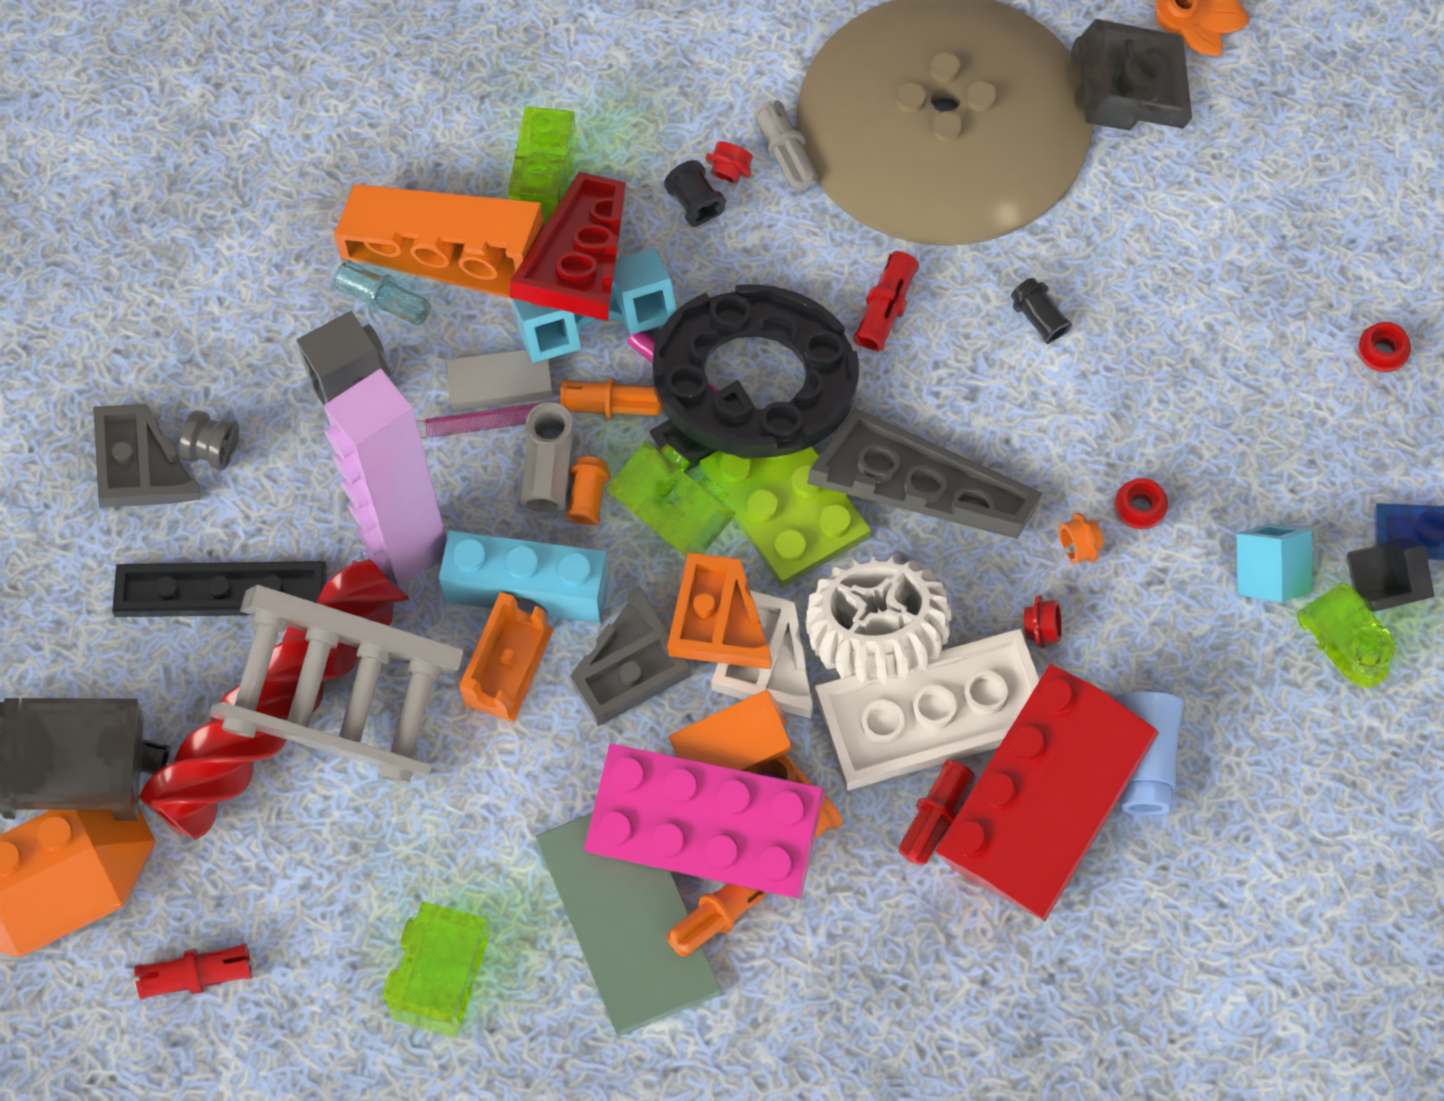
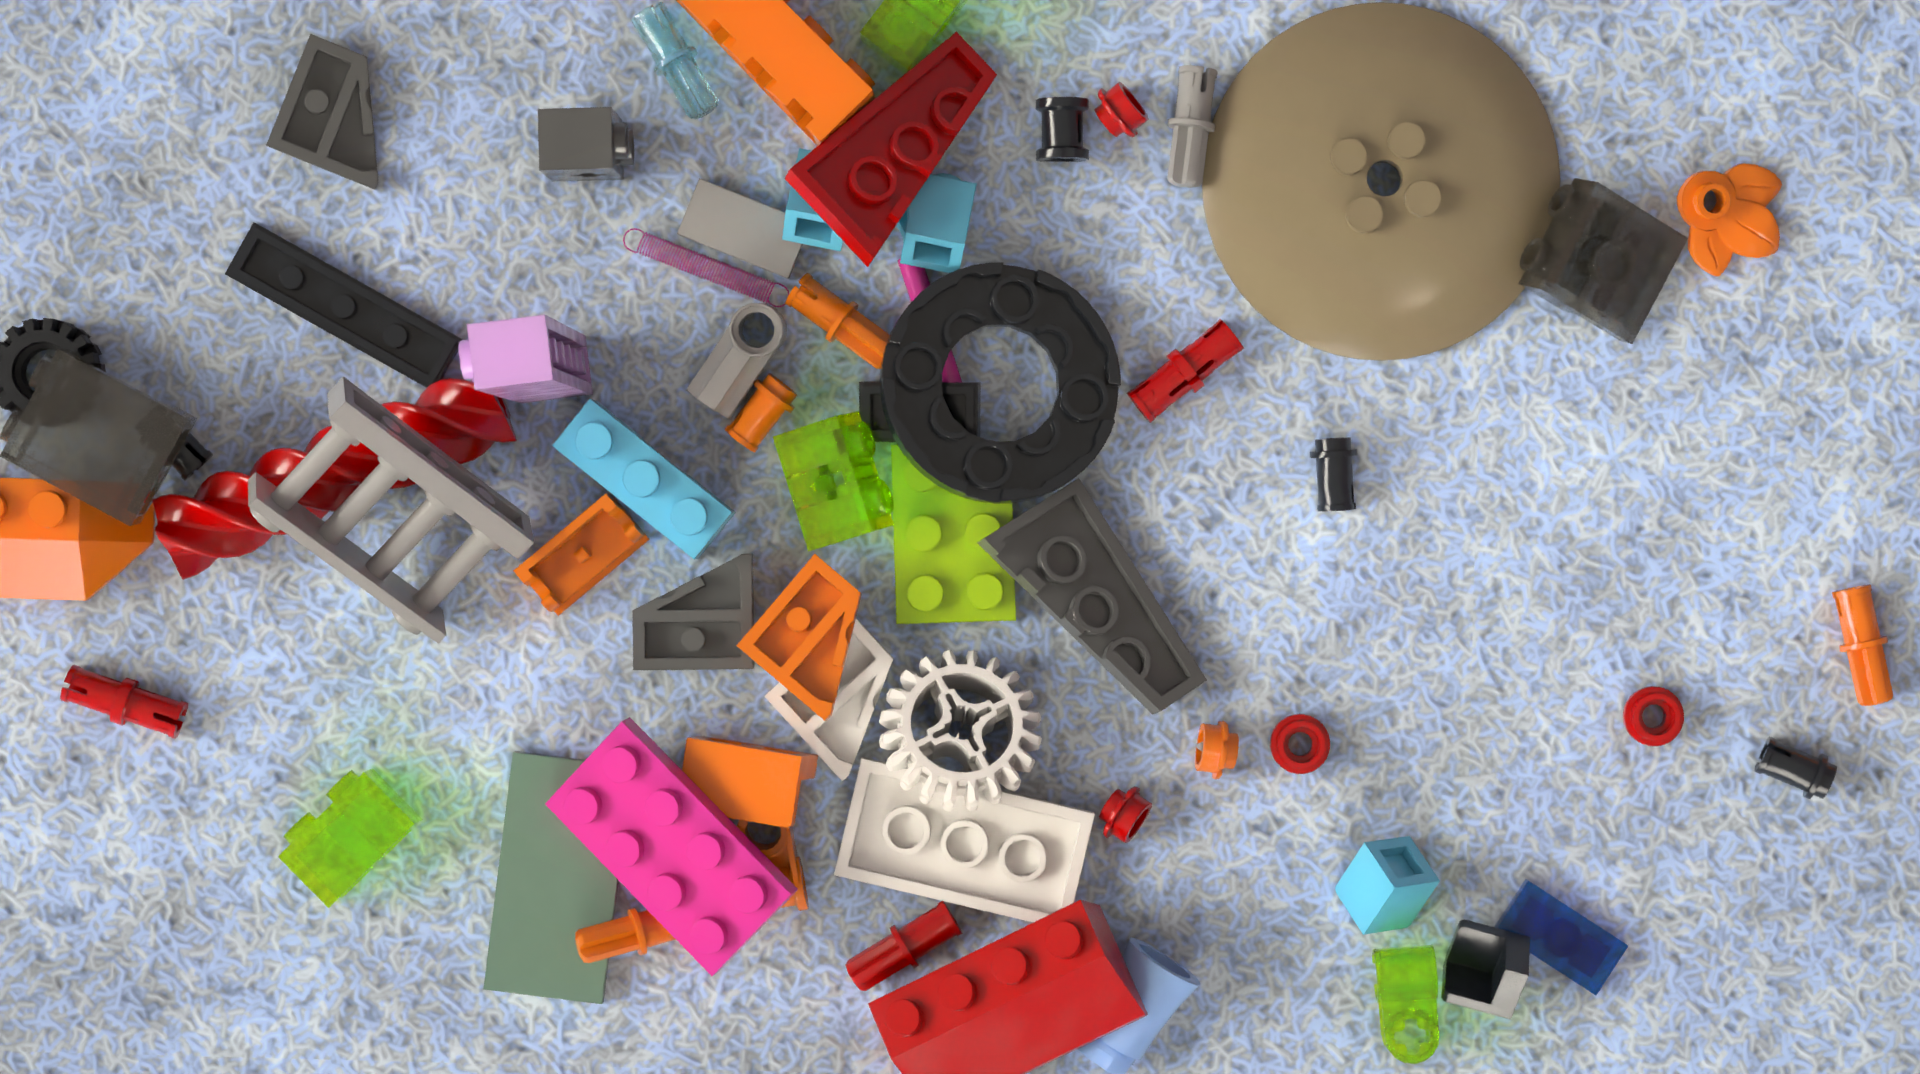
camera: 25 degrees right, 25 degrees up
(209, 439) = (411, 136): dark grey wheel -> none

